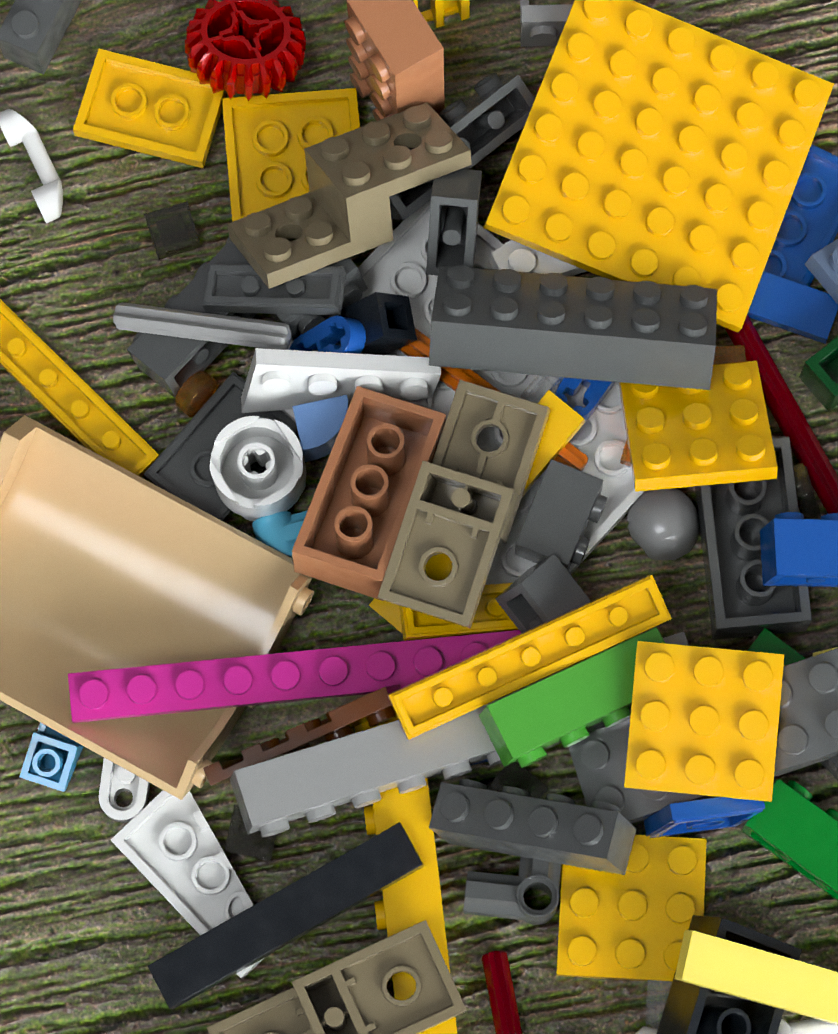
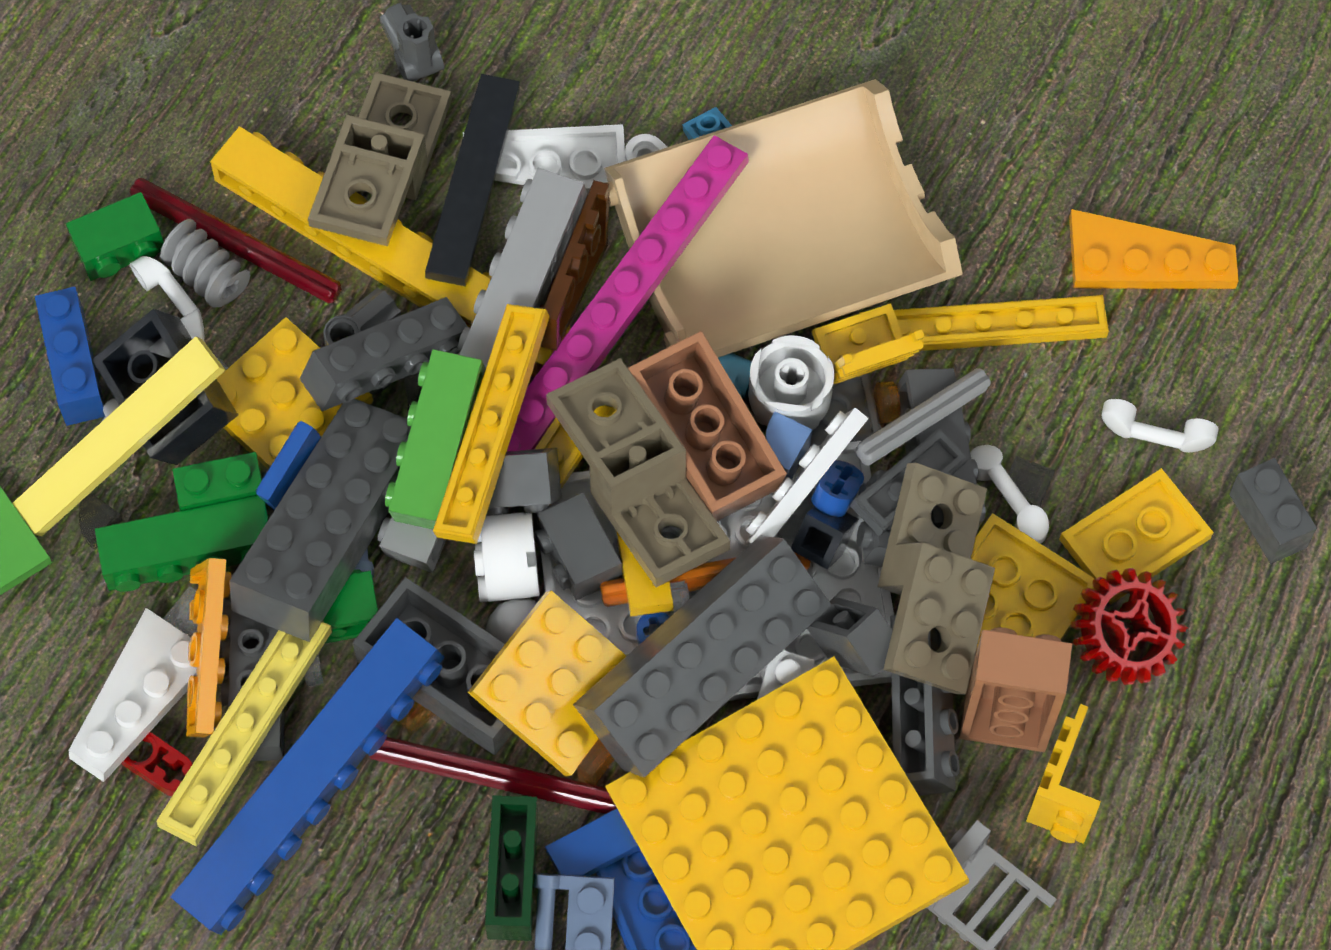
camera: 125 degrees right, 10 degrees down
(168, 430) = (866, 343): none -> yellow plate
(210, 201) = (1030, 518): none -> white bar
(620, 561) = (506, 558): none -> white brick
(704, 721) = (344, 489): yellow plate -> none
(767, 875) = (217, 481): none -> green brick
(805, 496) = (450, 733): clear smoke tile -> none

